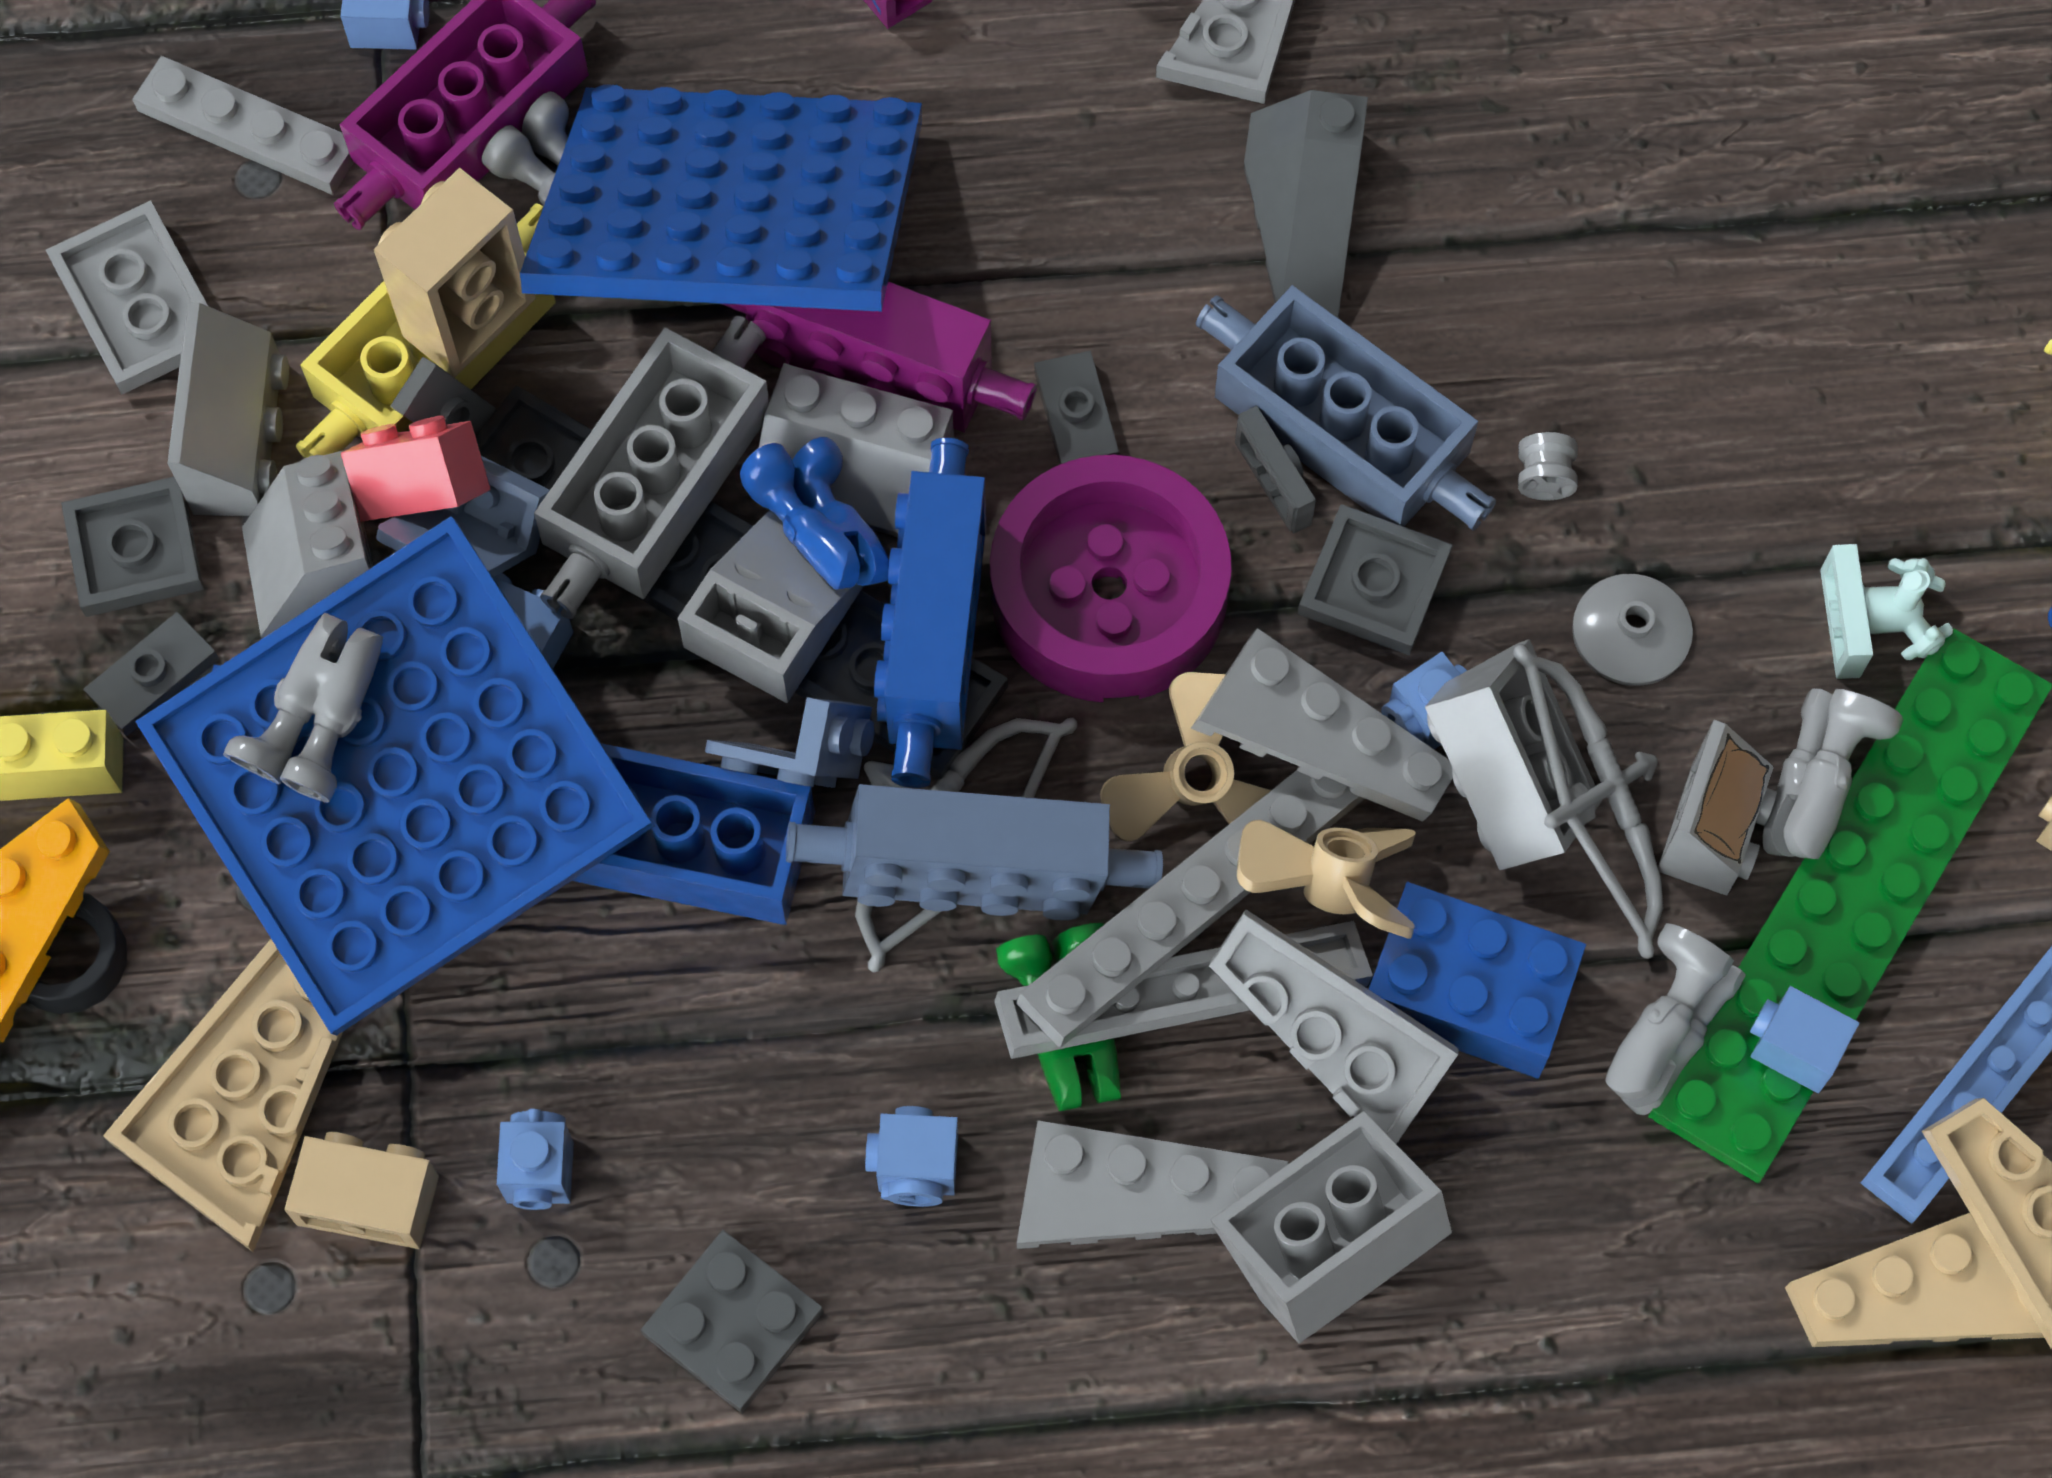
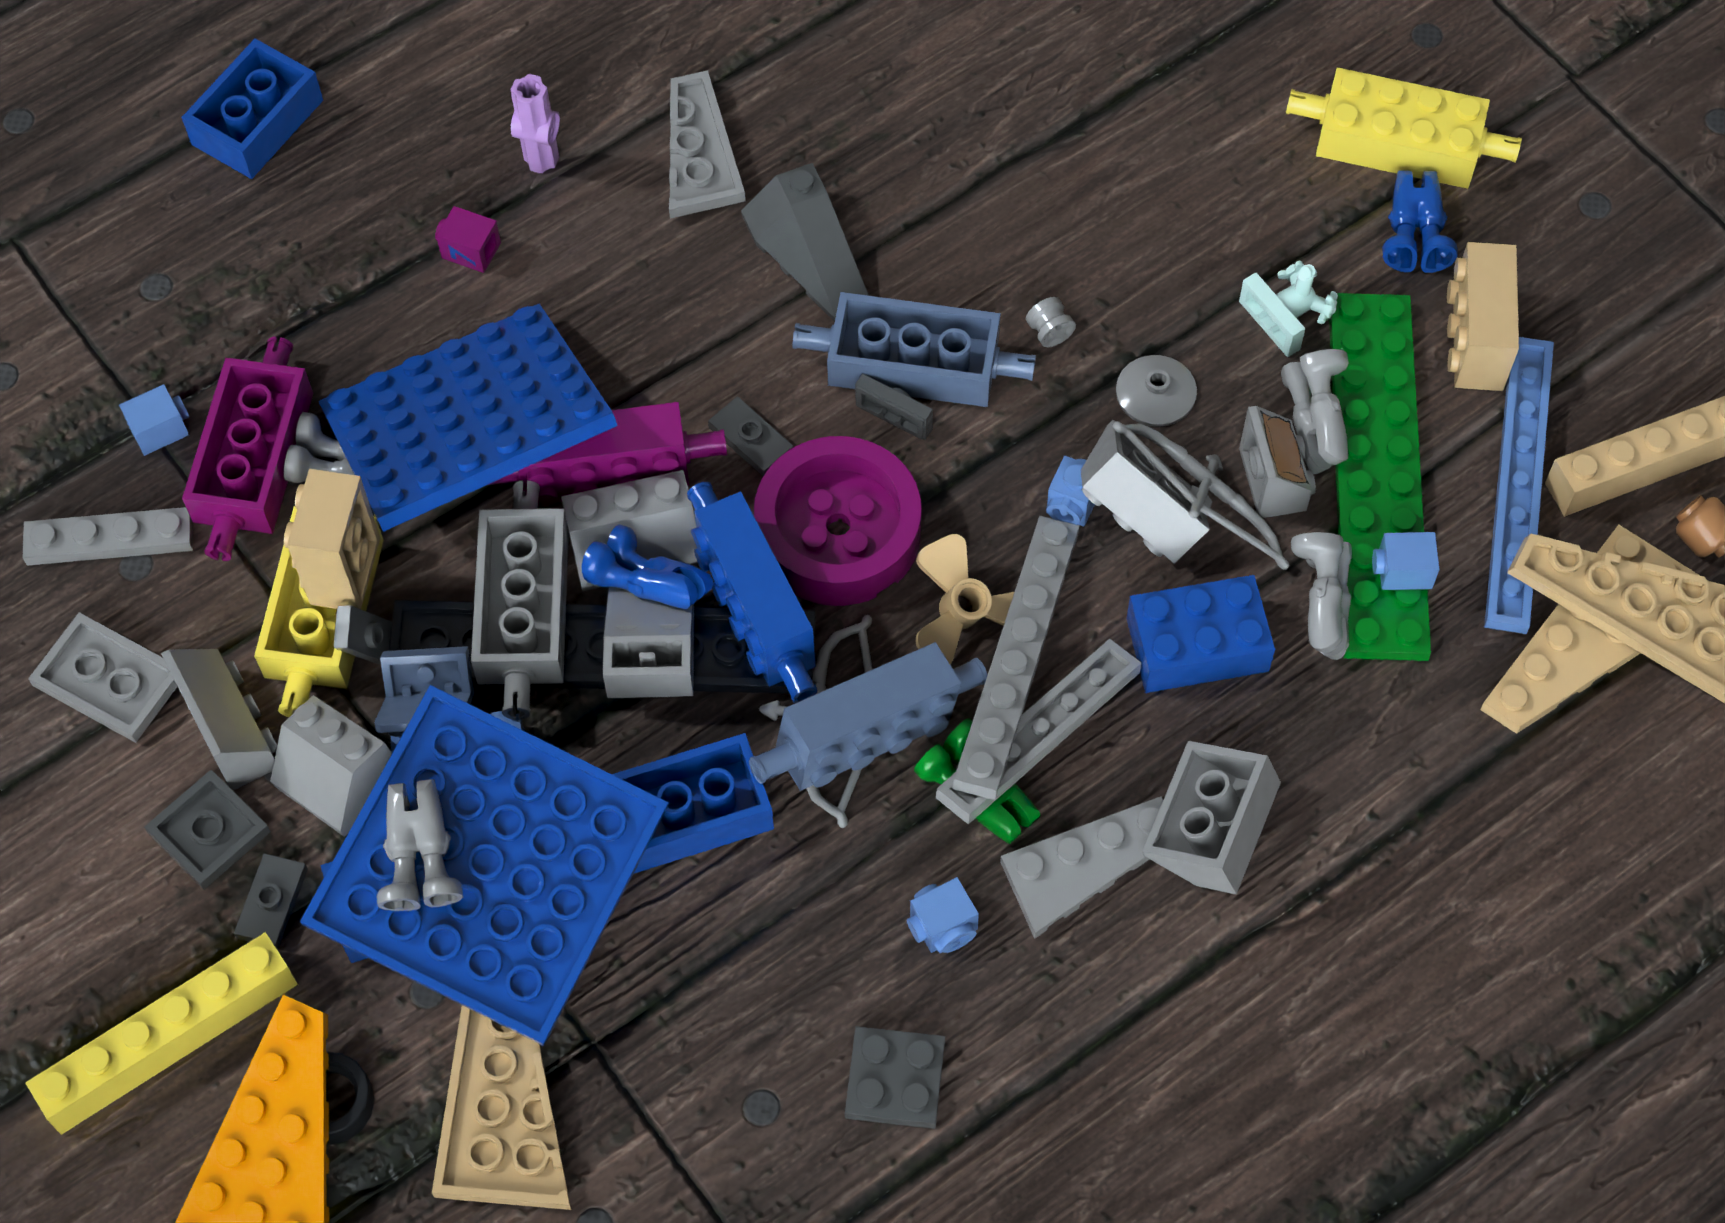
camera: 30 degrees left, 5 degrees down
(362, 1190) = (619, 1130): tan brick -> none
(415, 469) = (374, 677): coral brick -> none
(535, 1160) = (716, 1050): medium blue brick -> none
(828, 746) = (741, 699): sand blue bracket -> none
(1302, 716) = (1010, 534): light grey wing -> none
(1333, 871) = (1084, 615): tan piece -> none
(1334, 1026) = (1145, 701): light grey wing -> none
(1375, 579) = (993, 439): dark grey plate -> none

